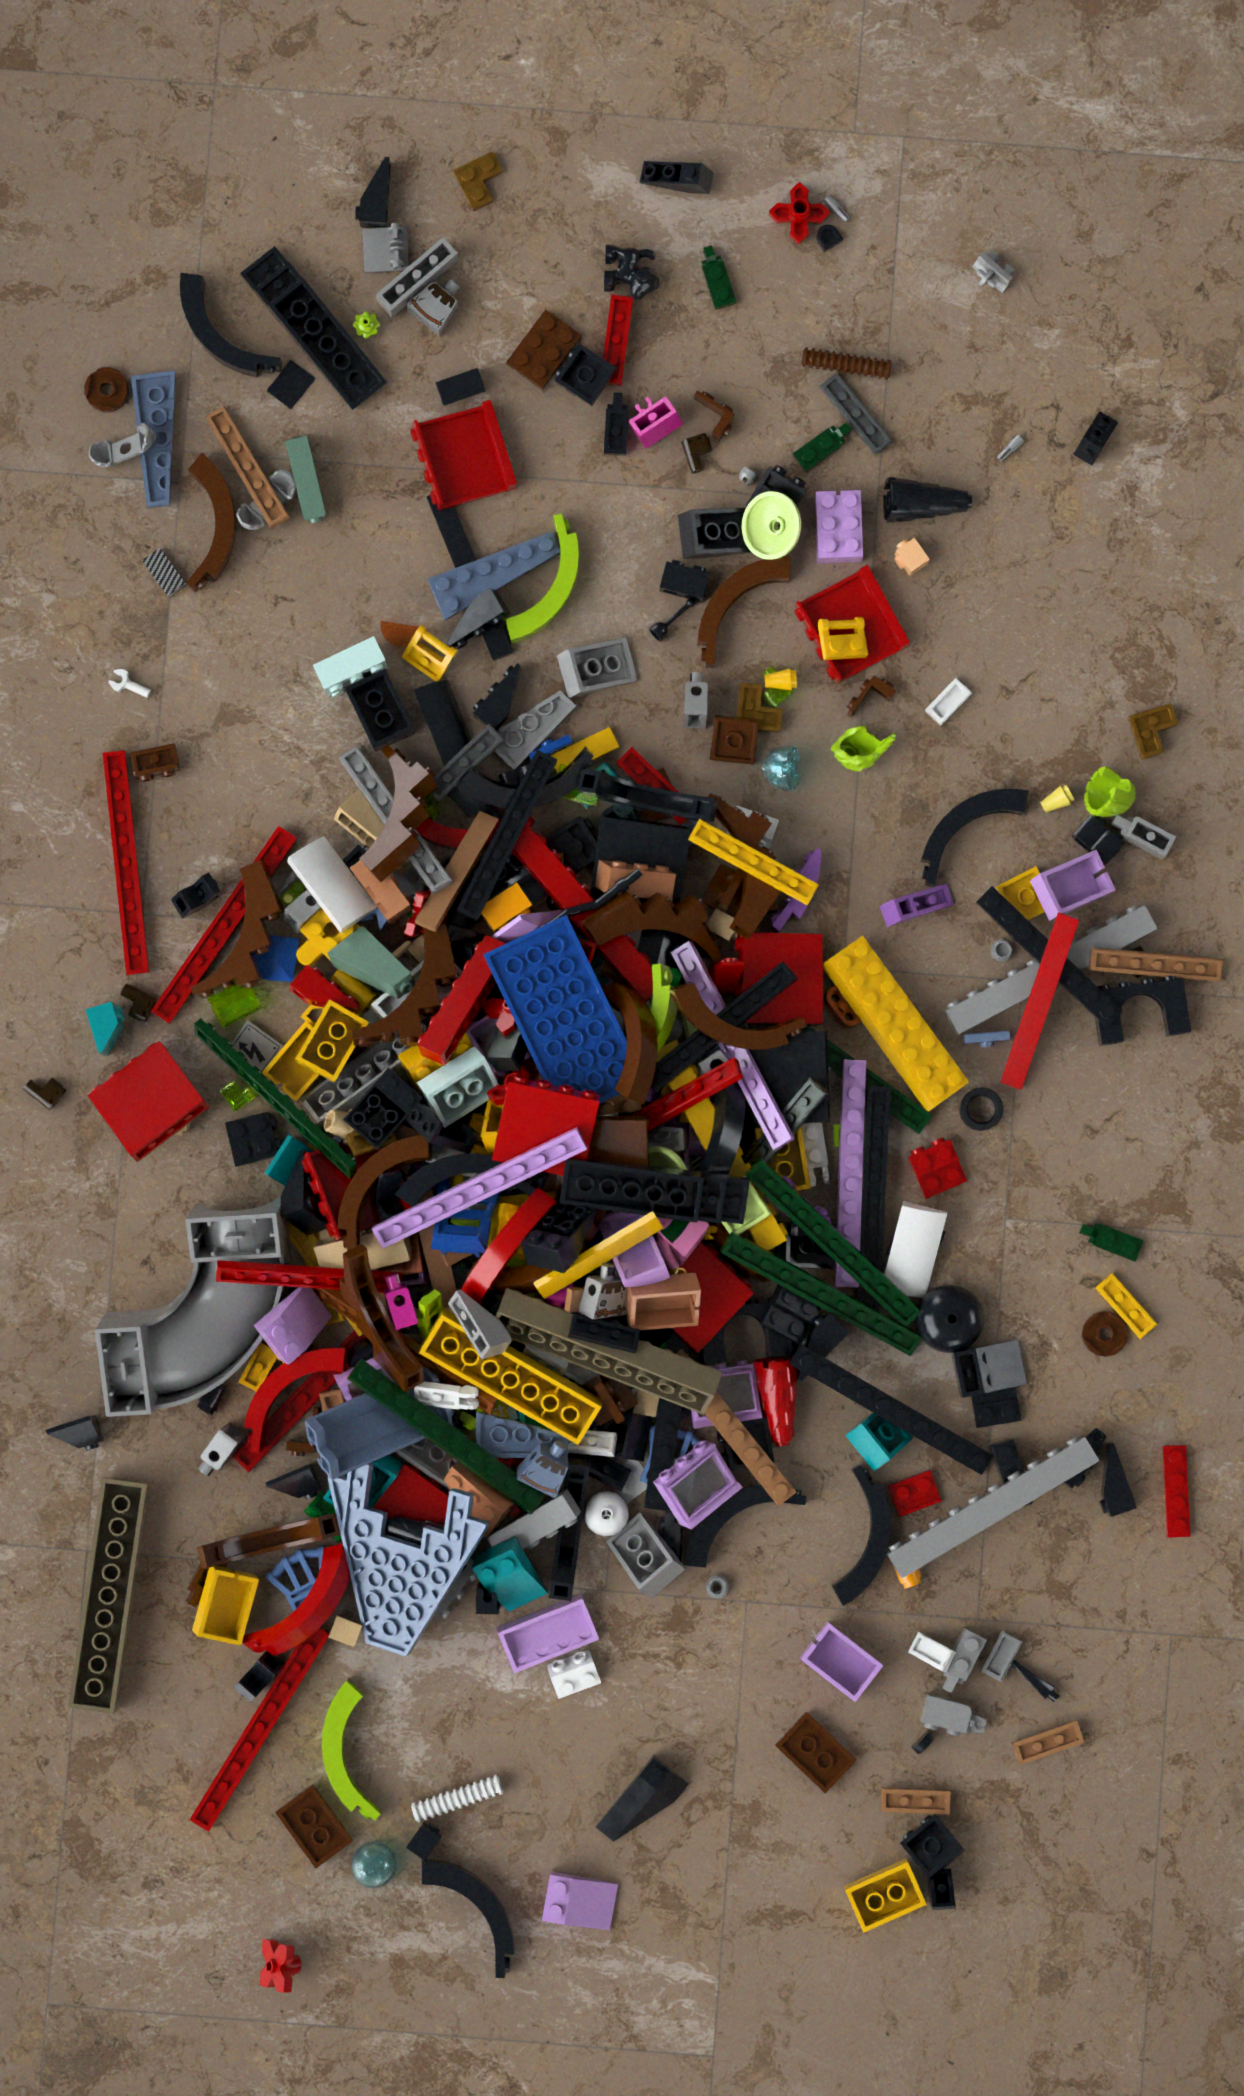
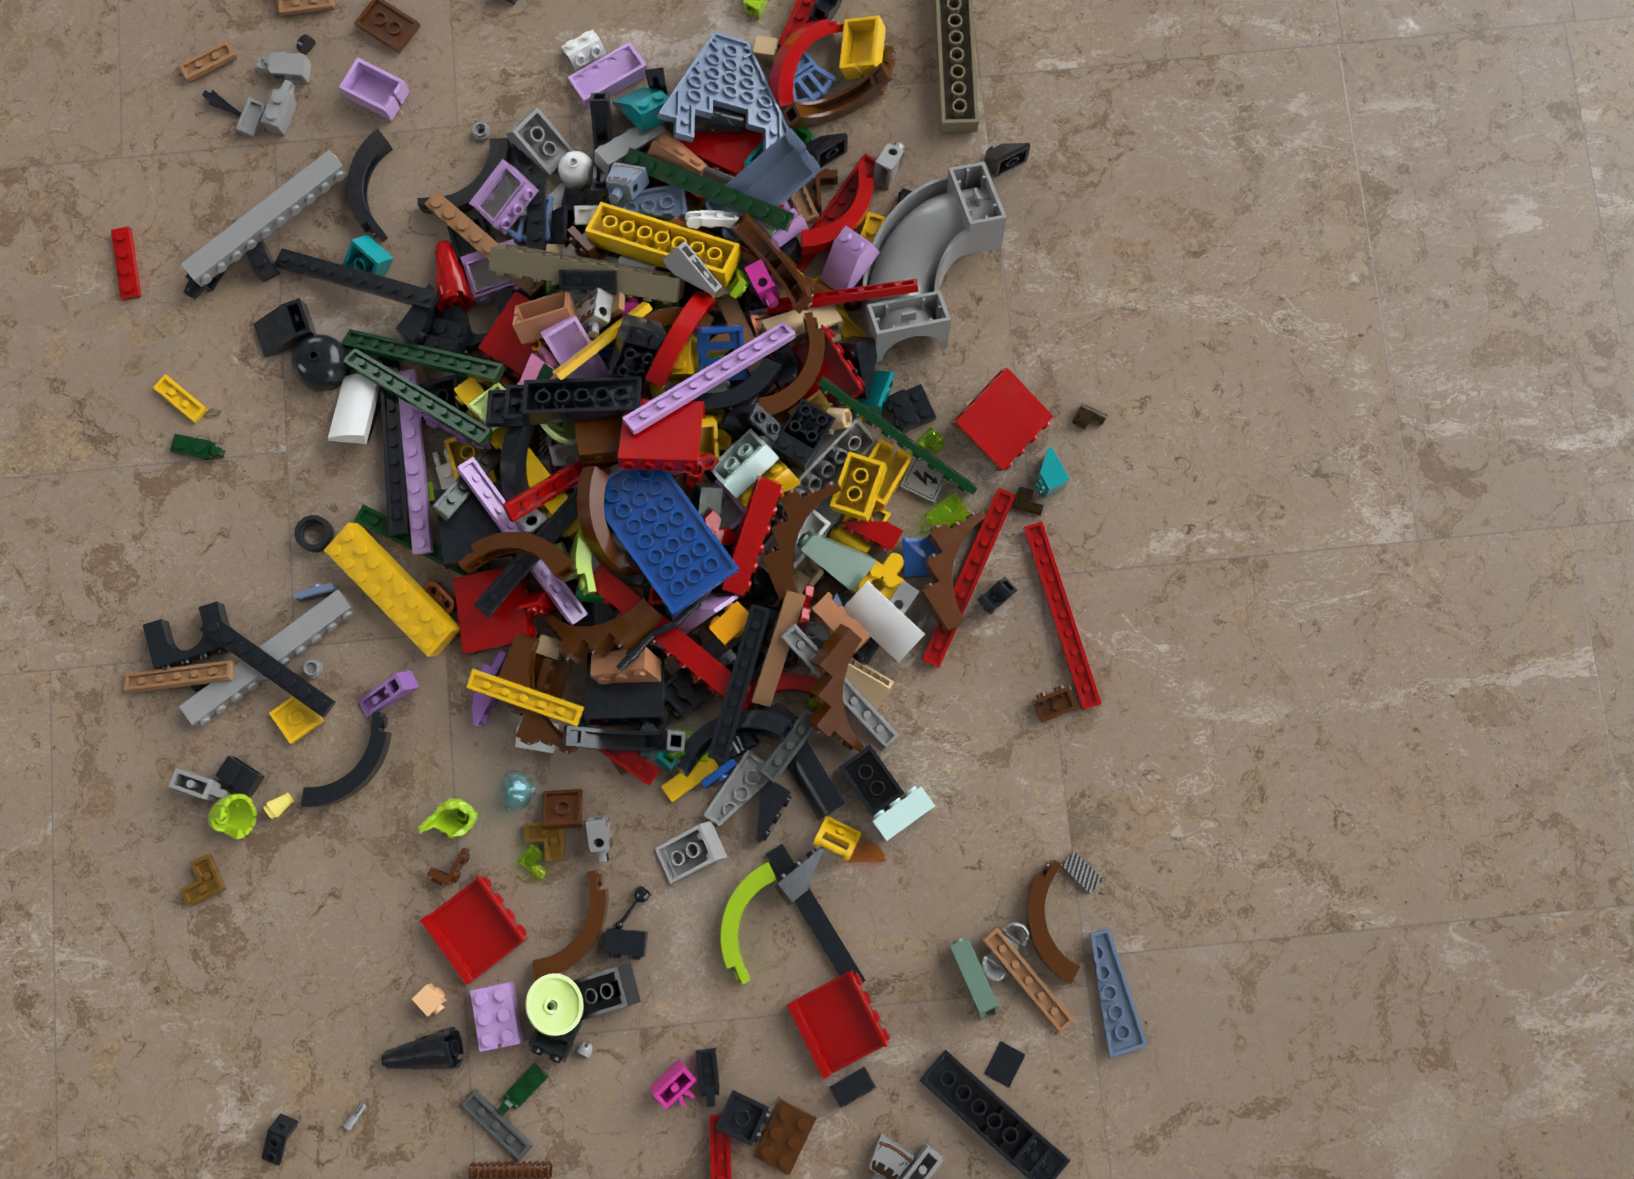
camera: 175 degrees right, 5 degrees down
(97, 380) = (1155, 1026): reddish brown tile -> none
(109, 454) = (1152, 969): light grey piece -> none
(127, 683) = (1091, 768): white bar -> none
(228, 355) = (1106, 1122): black arch -> none
(293, 893) = (916, 609): clear neon green piece -> none
(366, 325) = (947, 1131): lime plant -> none
(461, 585) = (806, 912): sand blue wing -> none
(694, 448) = (636, 1067): dark brown piece -> none
(724, 426) = (611, 1091): reddish brown bracket -> none
(782, 679) = (526, 867): yellow cone -> none
(843, 646) = (477, 907): yellow plate -> none
(914, 1493) = (334, 226): red plate -> none
(932, 1652) = (304, 108): white tile -> none
(936, 1167) = (346, 481): red plate -> none
(948, 701) = (383, 875): white tile -> none
(996, 1408) = (273, 298): black plate -> none
(1039, 1000) = (270, 628): red tile -> none
(1072, 885) = (255, 729): lavender piece -> none
(1114, 1343) = (204, 379): reddish brown tile -> none
(1115, 1487) = (173, 253): black slope -> none

